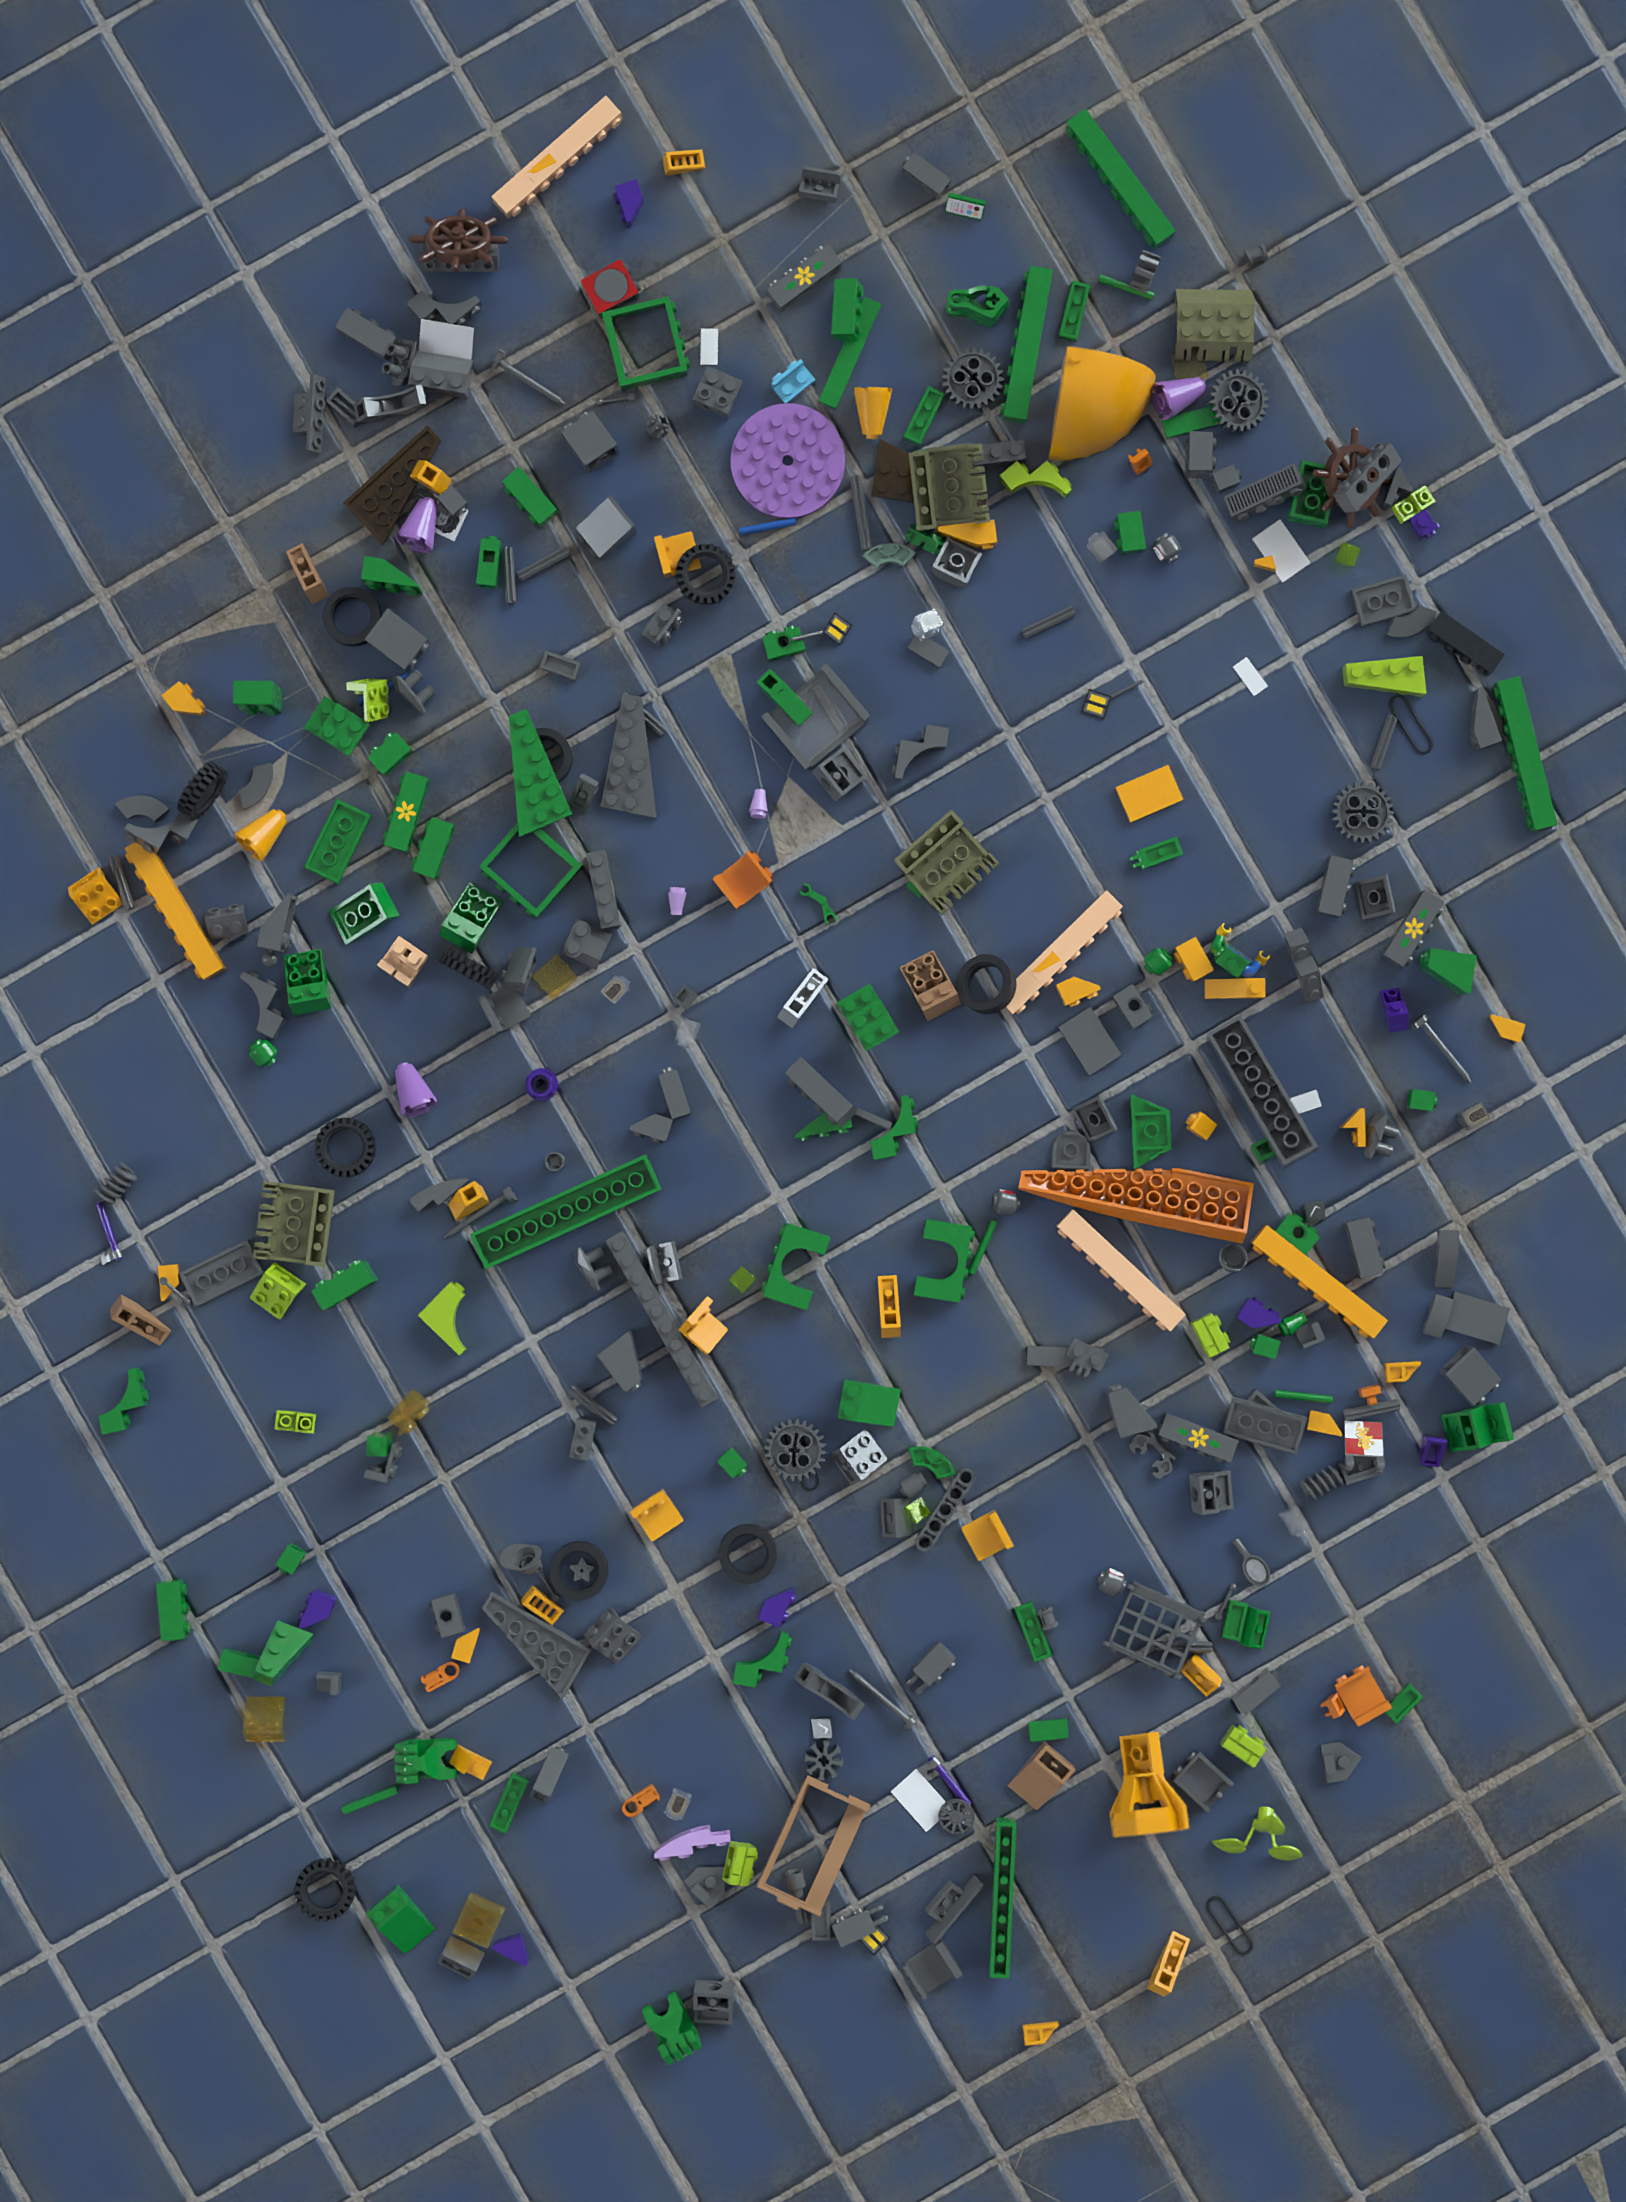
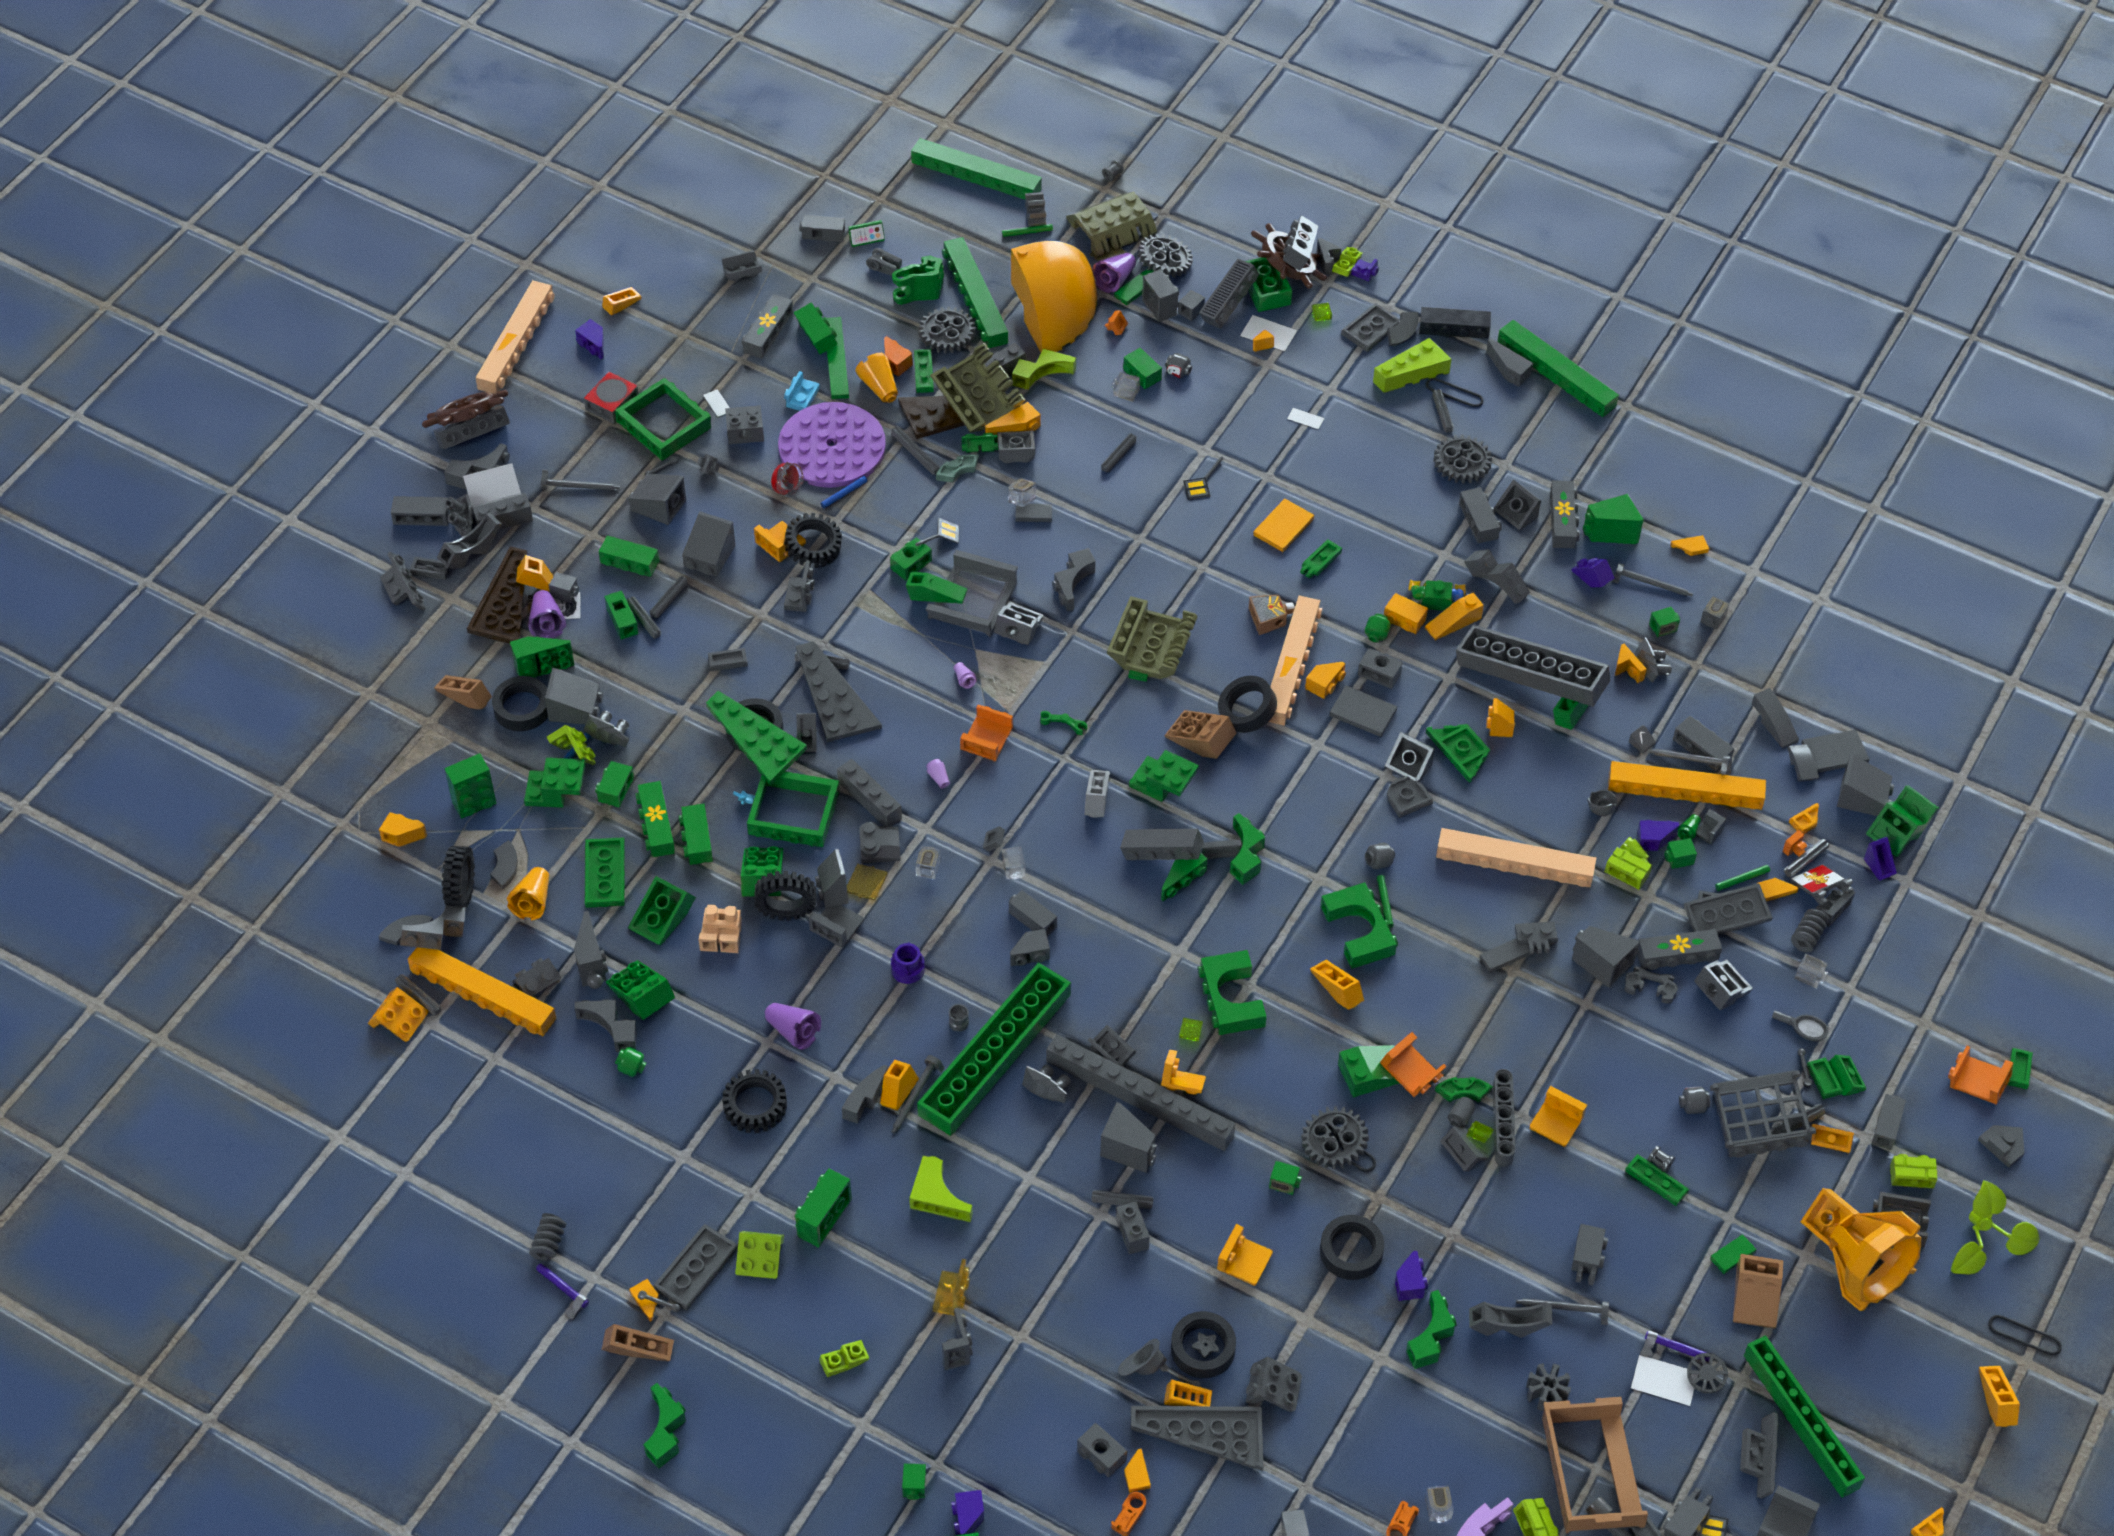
camera: 30 degrees left, 35 degrees down
(295, 1223) = (745, 1183): olive slope -> none
(379, 1444) = (939, 1317): green brick -> none
(496, 830) = (744, 797): none -> medium azure plant
(720, 486) = (787, 478): none -> clear hair
(822, 1727) = (1527, 1361): slope -> none
(858, 1457) = (1395, 1117): bracket -> none
(898, 1424) = (1411, 1067): none -> orange panel
(903, 387) = (899, 357): none -> orange slope
(962, 248) = (883, 262): none -> dark grey piece
(1072, 889) = (1269, 612): none -> torso
(1074, 311) = (997, 260): green tile -> none
(1155, 1197) = (1509, 791): orange wedge -> none
(1228, 1319) = (1635, 848): none -> lime cone
(1305, 1241) = (1641, 755): green brick -> none
(1335, 1706) = (1963, 1096): orange tile -> none
(1364, 1285) = (1726, 762): none -> dark grey piece

